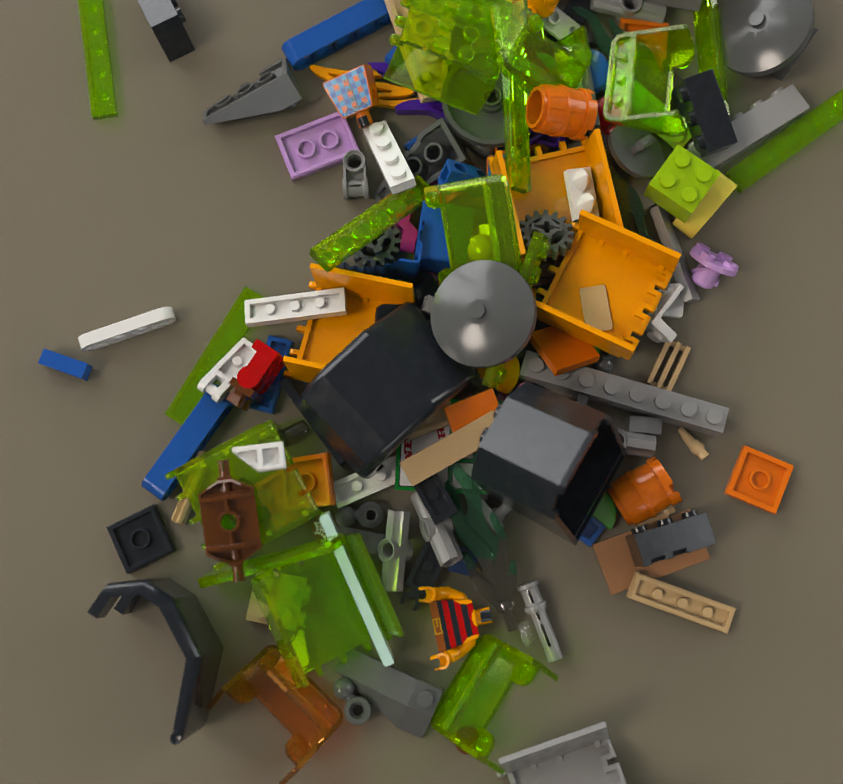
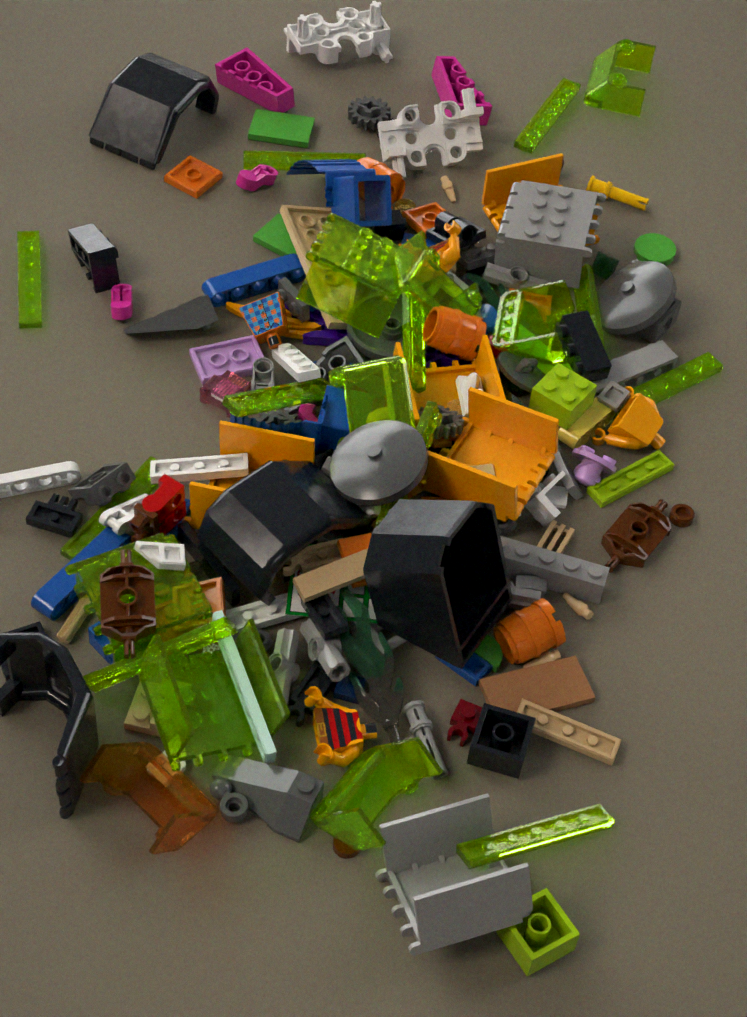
camera: 10 degrees left, 30 degrees down
(155, 372) = (55, 516): none -> black hinge
(197, 76) = (121, 301): none -> dark pink piece
(198, 333) = (103, 484): none -> dark grey plate
(318, 193) = (218, 387): none -> clear pink piece
(376, 57) = (289, 294): none -> dark grey plate
(580, 589) = (464, 720): none -> dark red plate
(616, 624) = (501, 740): none -> black brick
(649, 733) = (534, 836): none -> clear neon green tile
(670, 538) = (552, 669): black wedge -> none
(737, 174) = (614, 396): none -> light grey tile
(742, 362) = (630, 547): none -> reddish brown plate
(752, 271) = (630, 478): none -> lime tile
(758, 479) = (641, 636): orange plate -> none
(760, 206) = (634, 425): none -> light orange torso
(805, 317) = (681, 515): none -> reddish brown tile

